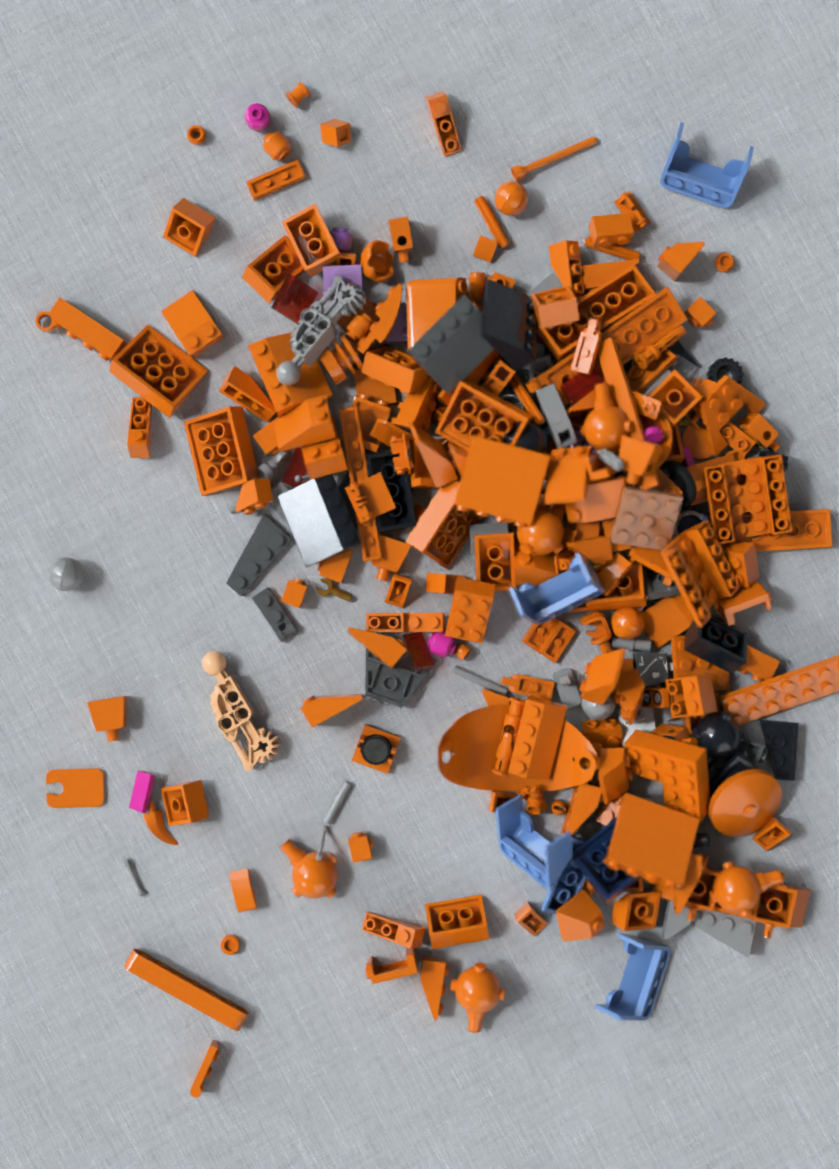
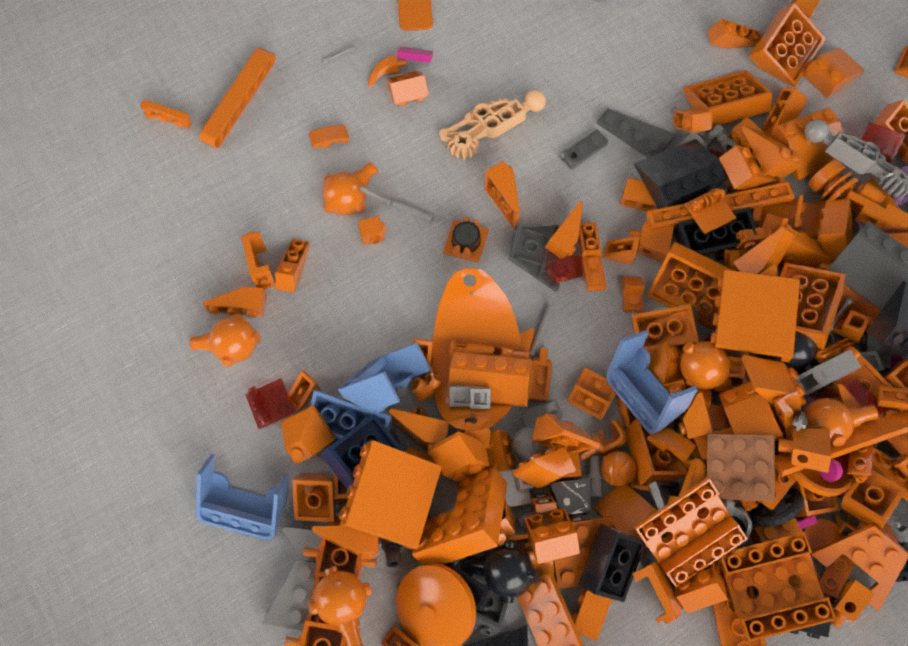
camera: 85 degrees right, 20 degrees down
(109, 715) = (480, 26): orange torso -> none
(230, 944) = (278, 131): orange tile -> none
(294, 593) = (606, 162): orange brick -> none
(332, 590) = (612, 196): pearl gold bar -> none
(441, 644) = (574, 292): dark pink head -> none
(456, 921) = (300, 321): orange slope -> none
(462, 651) = (567, 313): orange hinge -> none
(470, 610) = (613, 308): orange brick -> none
(477, 375) = (848, 301): none -> light grey hinge
(540, 951) = (269, 403): none -> clear red hinge
(552, 763) = (470, 396): none -> light grey slope

